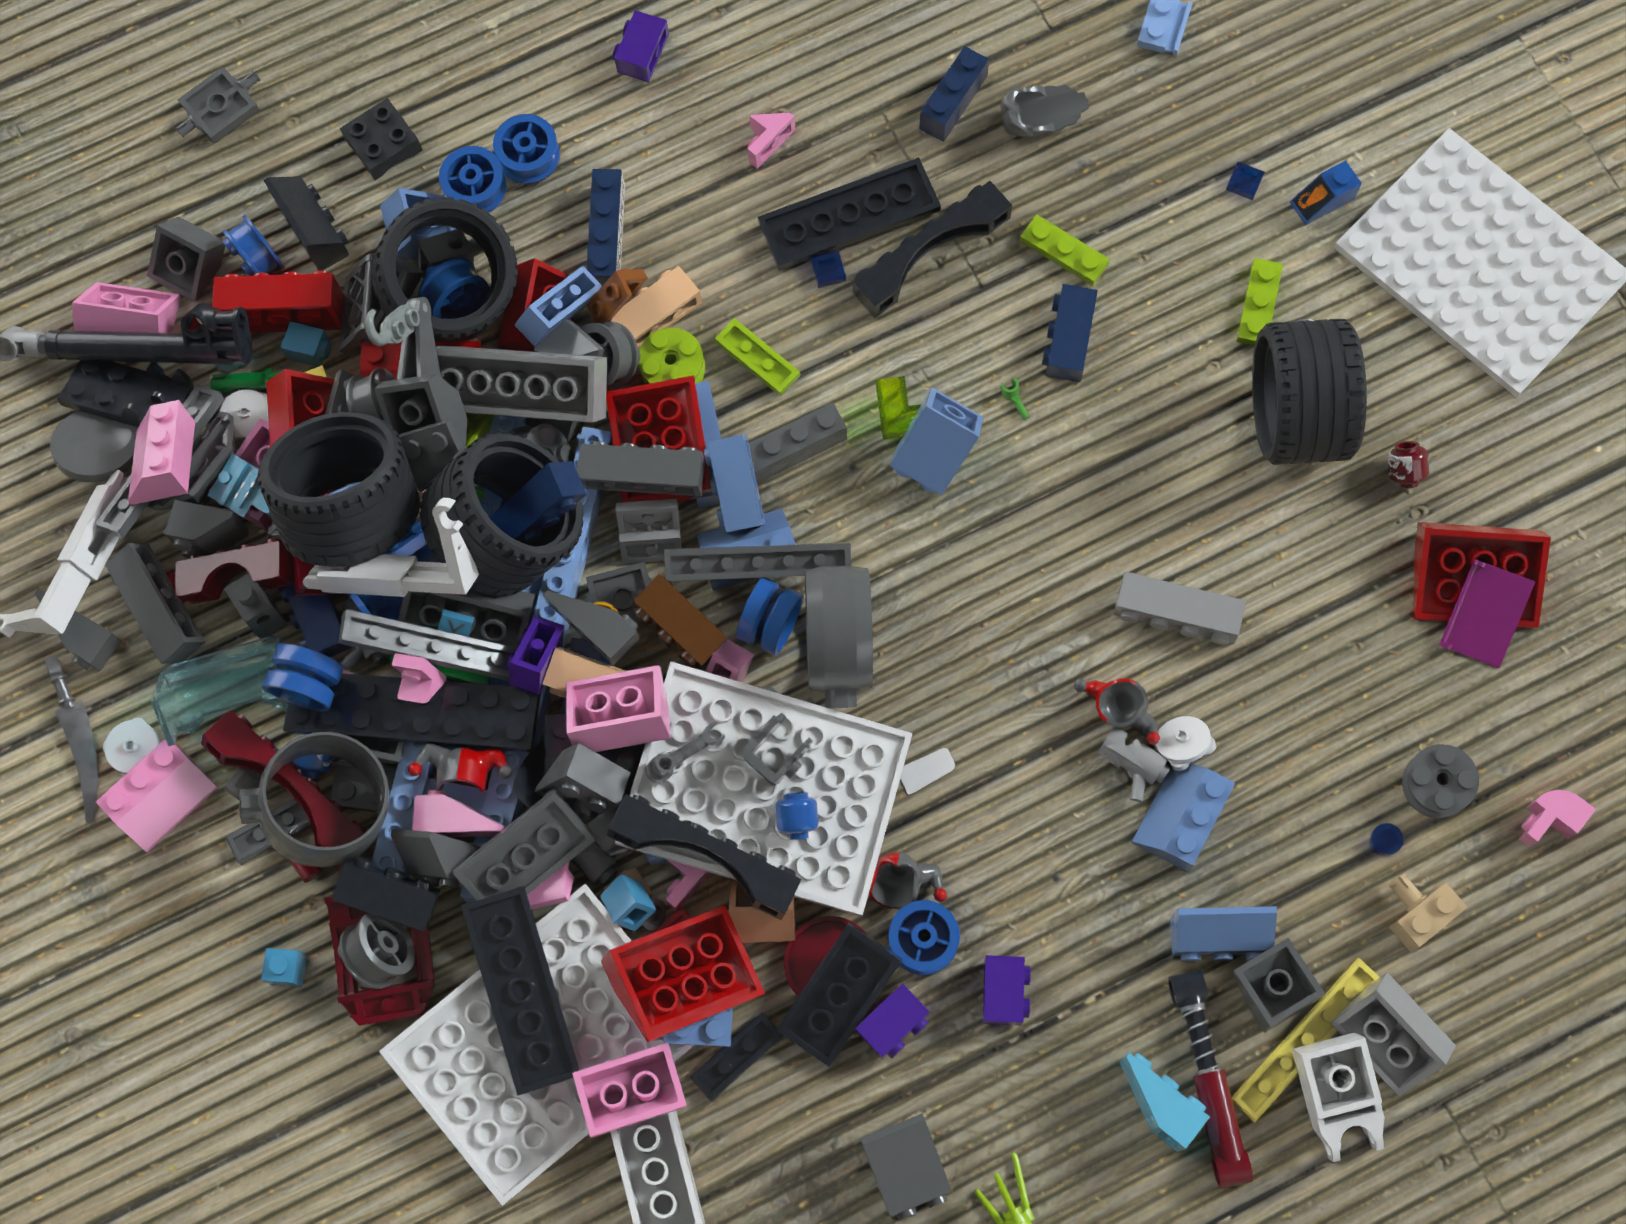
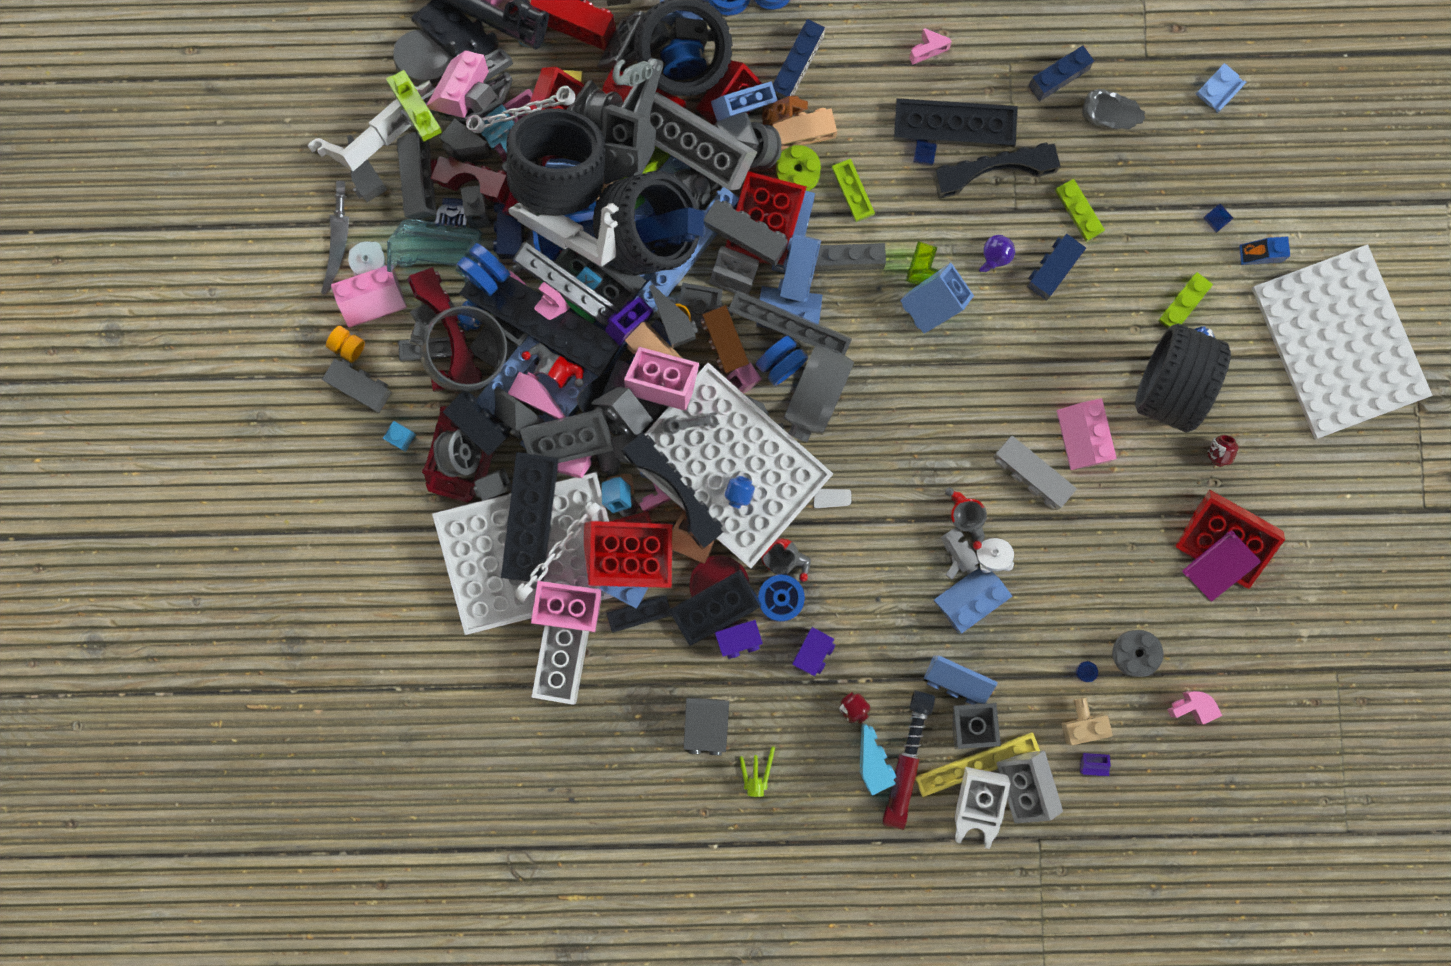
camera: 25 degrees right, 10 degrees up
(110, 508) = (413, 105): none -> lime hinge
(145, 875) = (342, 342): none -> light orange wheel
(192, 924) = (357, 384): none -> dark grey brick
(197, 456) = (479, 97): none -> dark grey piece
(210, 494) = (564, 95): none -> white piece
(225, 625) = (453, 209): none -> dark blue piece
(241, 381) = (533, 58): green axle -> none
(246, 408) = (523, 76): white piece -> none
(306, 344) = (578, 51): dark azure brick -> none
(446, 971) = (492, 484): none -> dark grey slope
(561, 1097) = (525, 591): none -> white piece
(789, 768) = (731, 454): dark grey piece -> none
(986, 348) = (997, 252): none -> dark purple hat
(1013, 395) = (1000, 289): bright green hand -> none
(1100, 1041) = (854, 708): none -> dark red head
(1221, 526) = (1086, 434): none -> bright pink slope
(1464, 960) = (1095, 764): none -> dark purple piece

